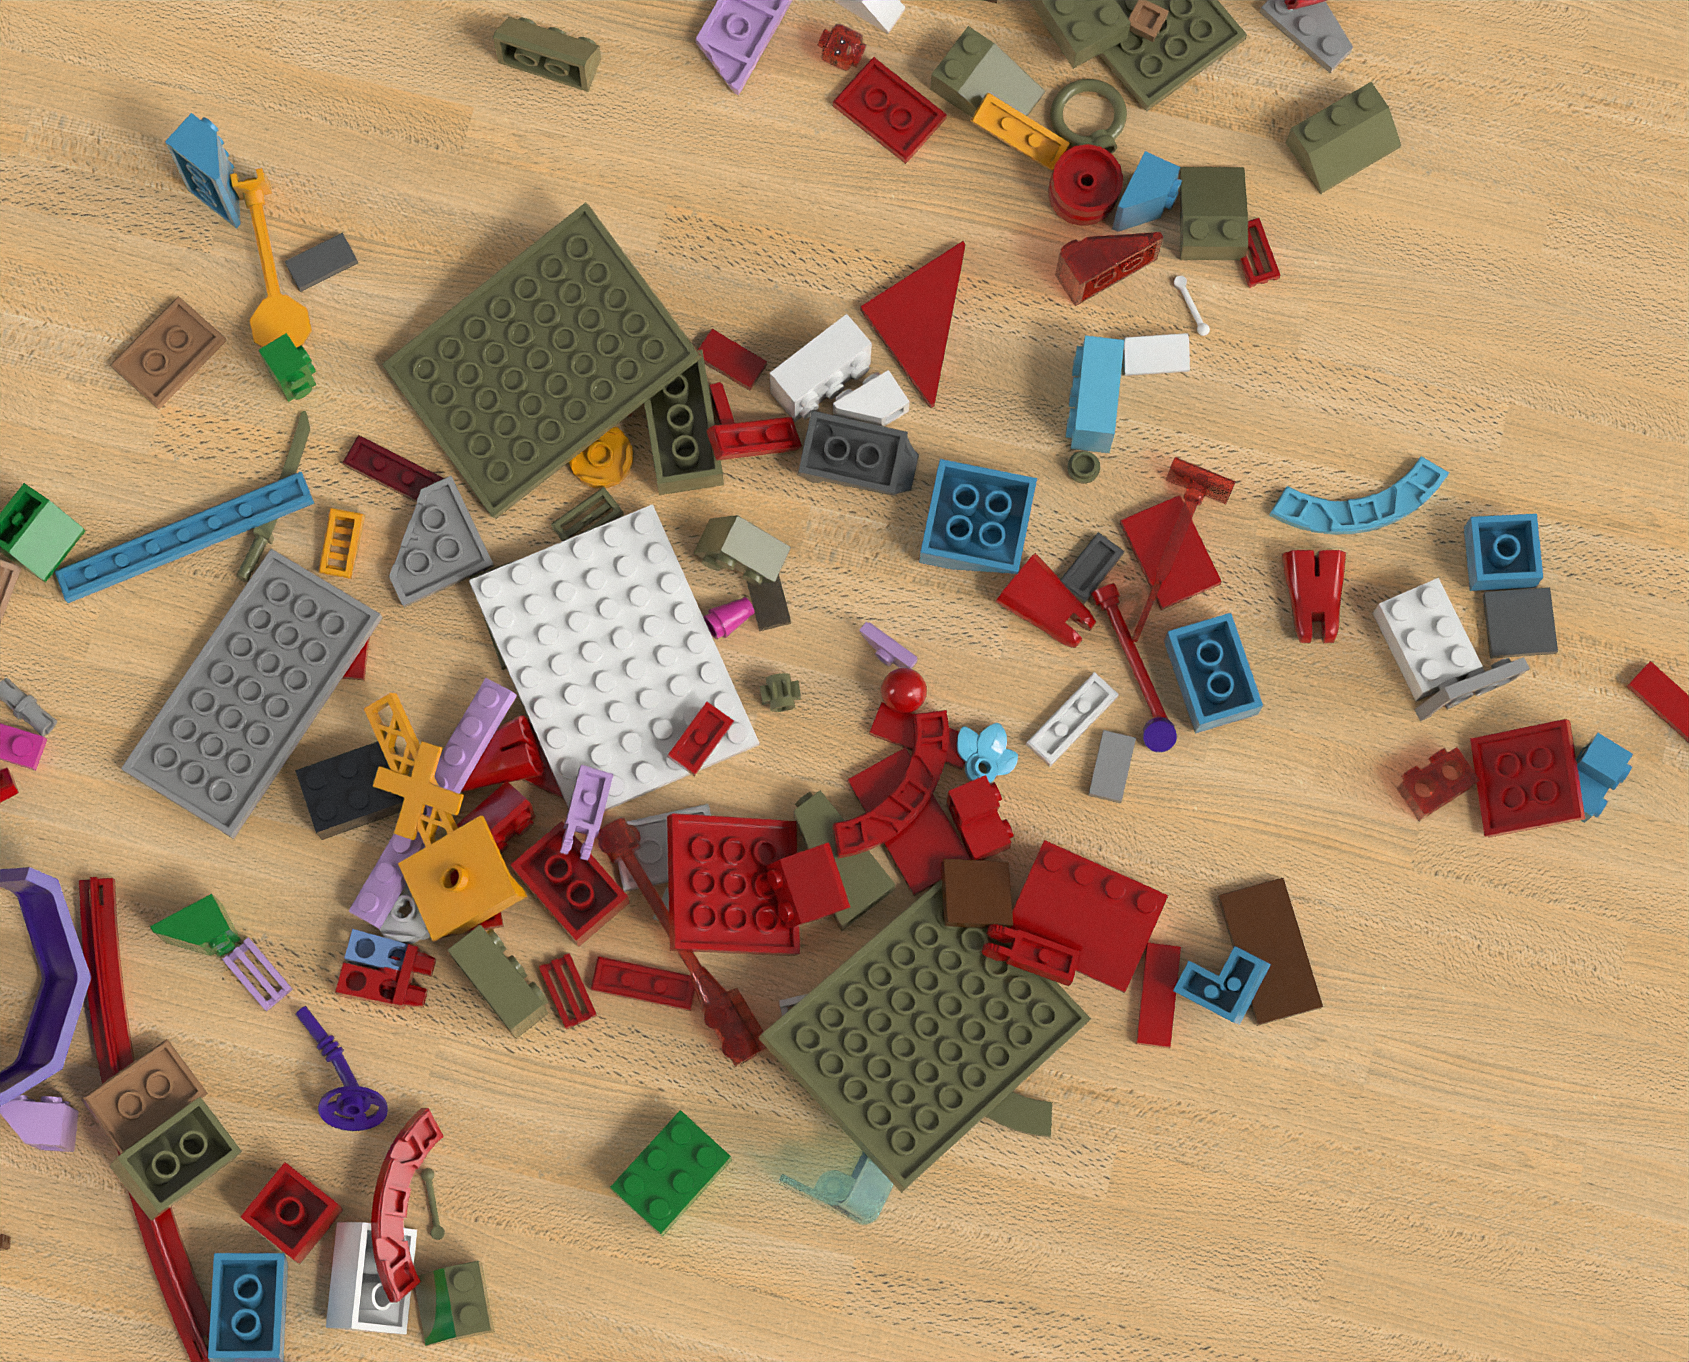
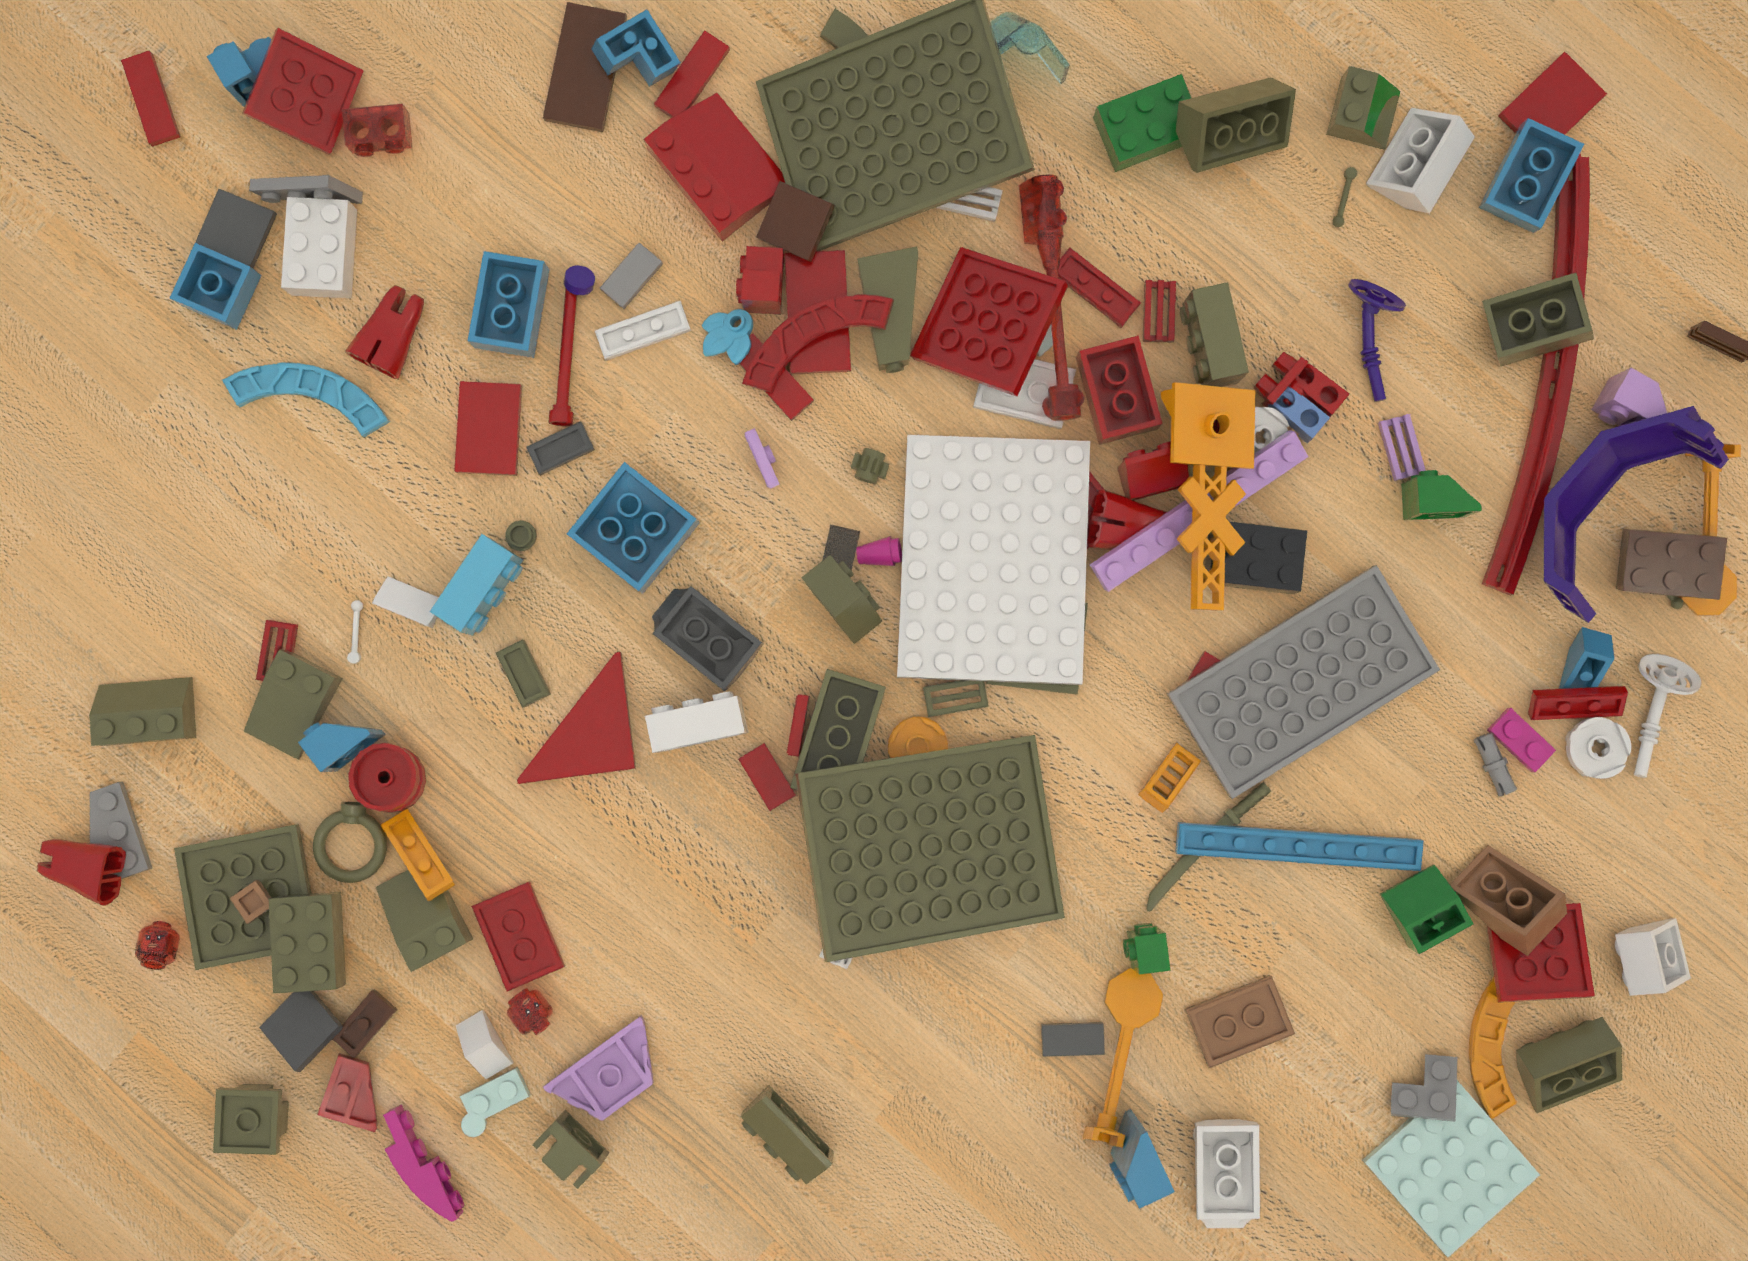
camera: 150 degrees left, 10 degrees up
(120, 211) = (1227, 1172): none -> white slope
(143, 1095) = (1539, 386): medium nougat tile -> none
(292, 1213) = (1462, 236): red brick -> none
(388, 468) = (1097, 819): dark red tile -> none
(391, 1203) = (1382, 203): tile -> none
(438, 545) = (1091, 732): light grey plate -> none
(580, 1208) = (1235, 123): none -> olive slope
(586, 808) = (1079, 437): lavender hinge -> none
(700, 738) = (956, 454): red plate -> none
(754, 438) = (784, 691): red tile -> none
(807, 886) = (930, 288): red slope -> none
(875, 402) = (666, 675): white slope -> none
(903, 690) = (769, 414): red piece -> none
(1012, 343) = (523, 673): none -> olive tile
(1033, 954) = (774, 148): red hinge -> none
(1046, 602) = (614, 435): red piece -> none
(1102, 261) = (419, 700): clear red slope -> none
(1198, 484) = (434, 470): clear red piece -> none

